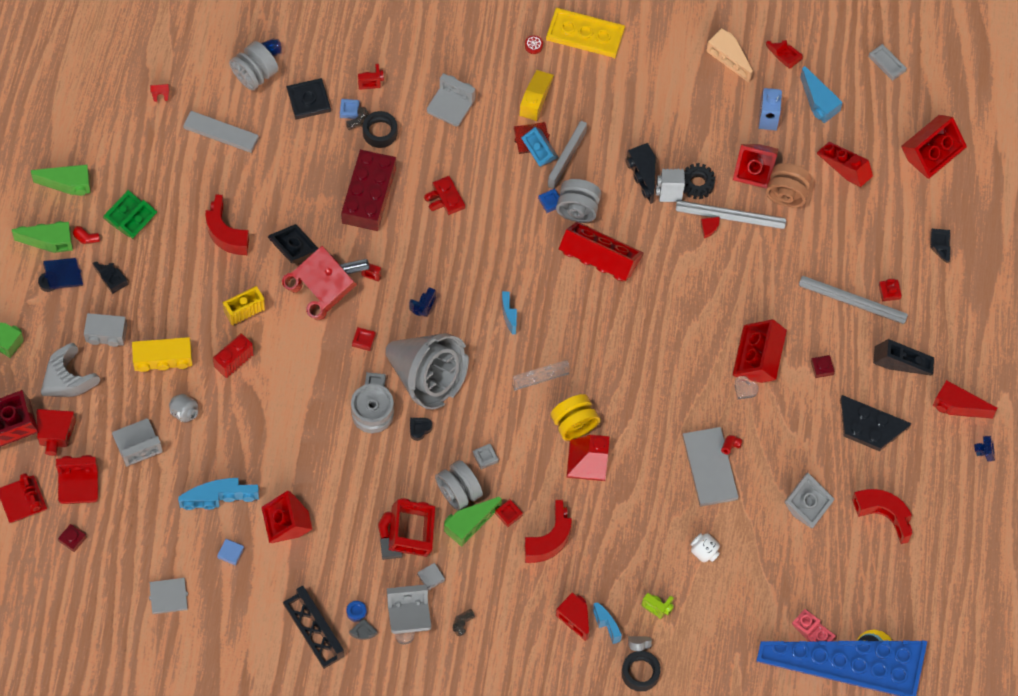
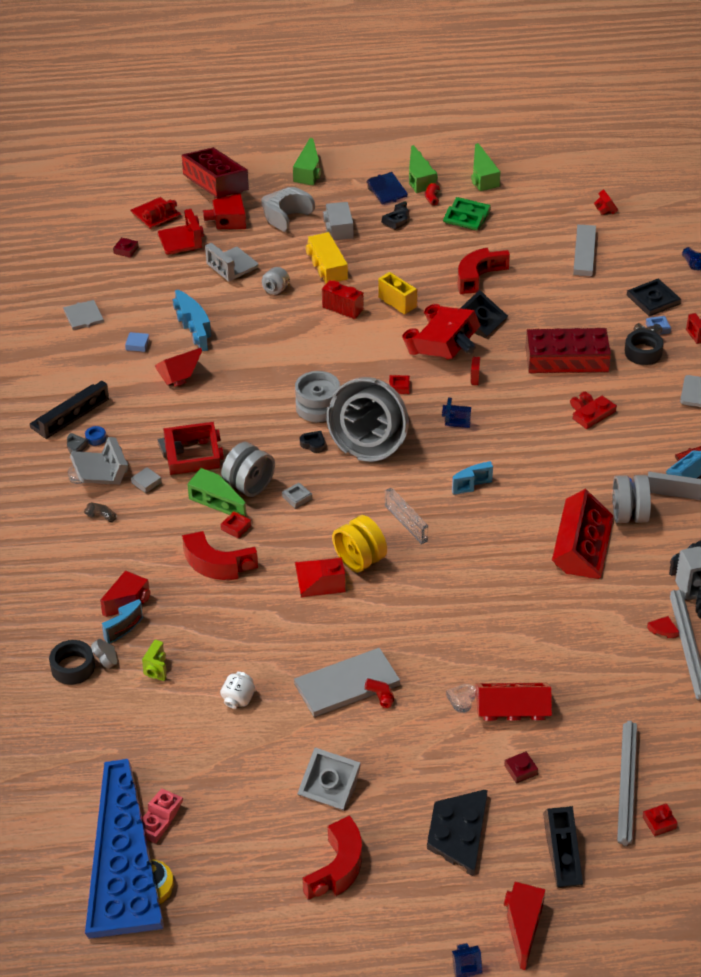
camera: 80 degrees right, 20 degrees down
(253, 65) = (662, 245): light grey wheel -> none

